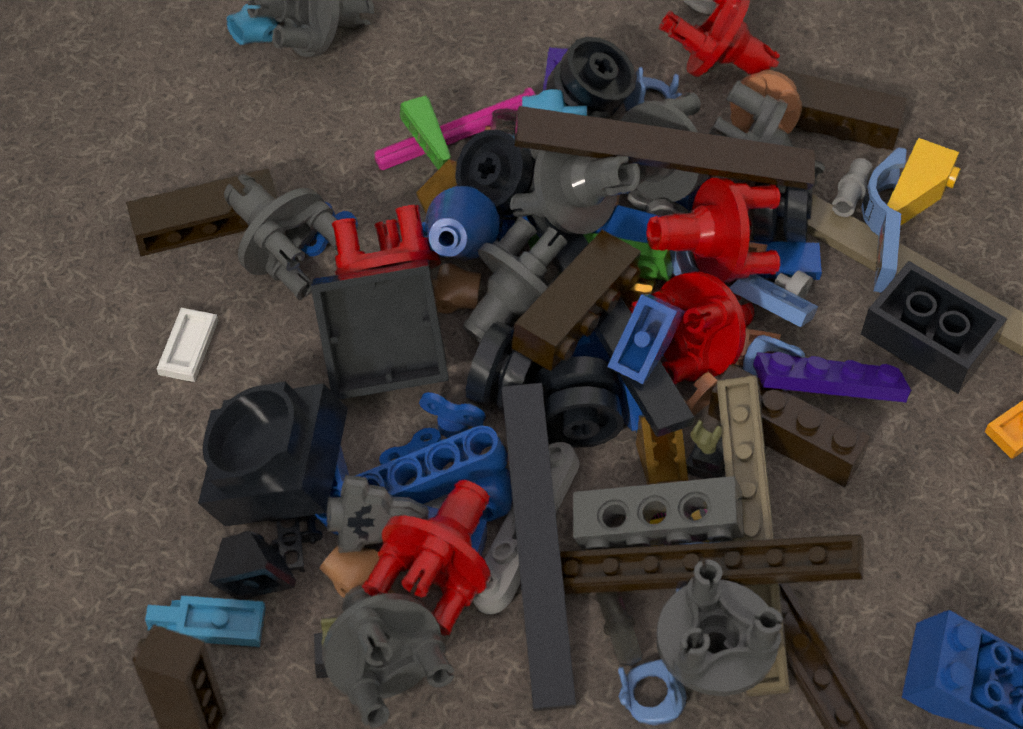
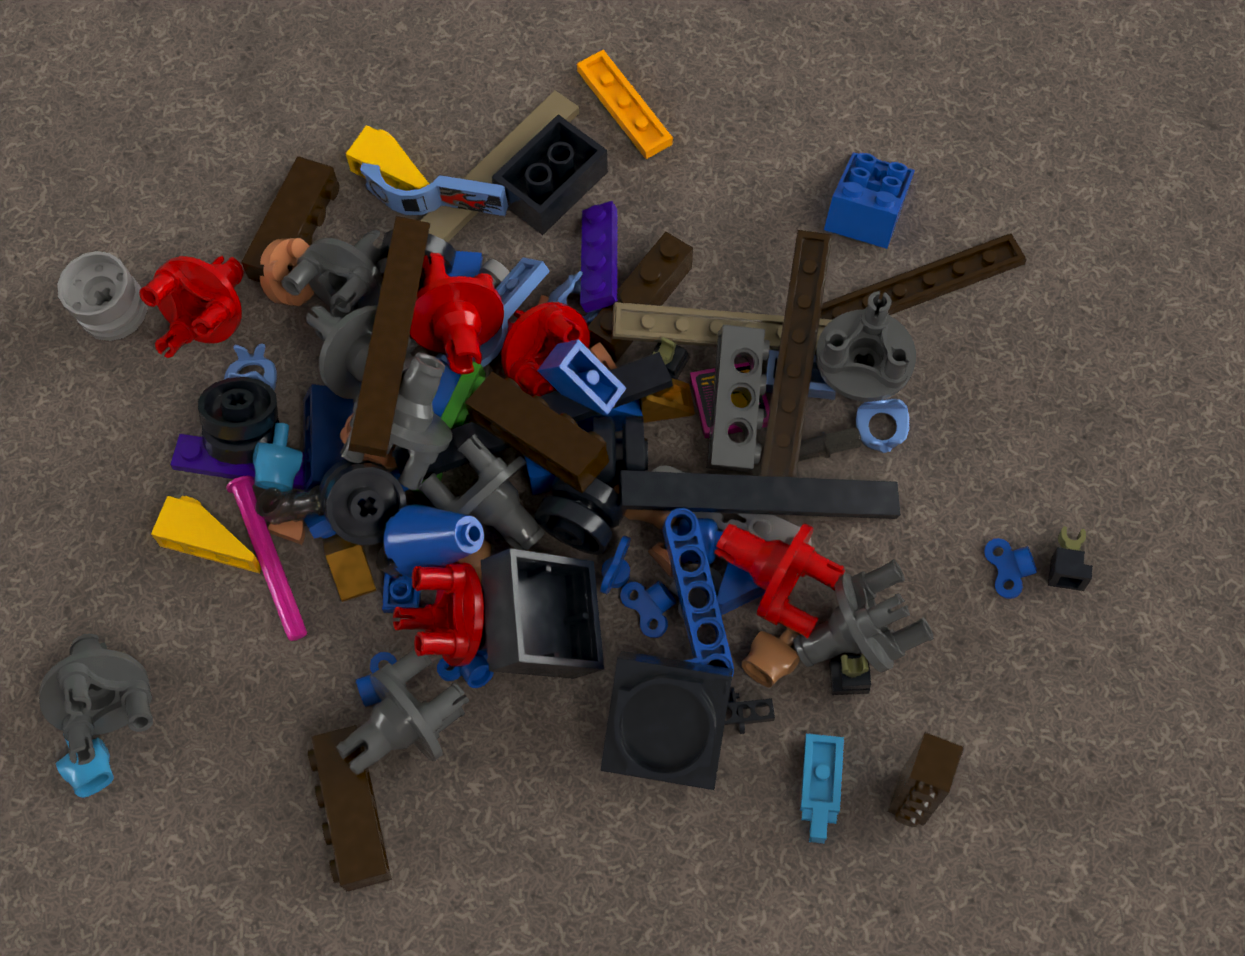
camera: 85 degrees left, 10 degrees up
(187, 344) = (511, 821): white tile -> none
(250, 567) = (775, 740): black slope -> none
(364, 511) = (740, 629): dark grey rock -> none
(423, 125) = (278, 578): bright green slope -> none
(478, 74) = (192, 530): none -> yellow slope
(852, 187) = (381, 215): light grey pin -> none

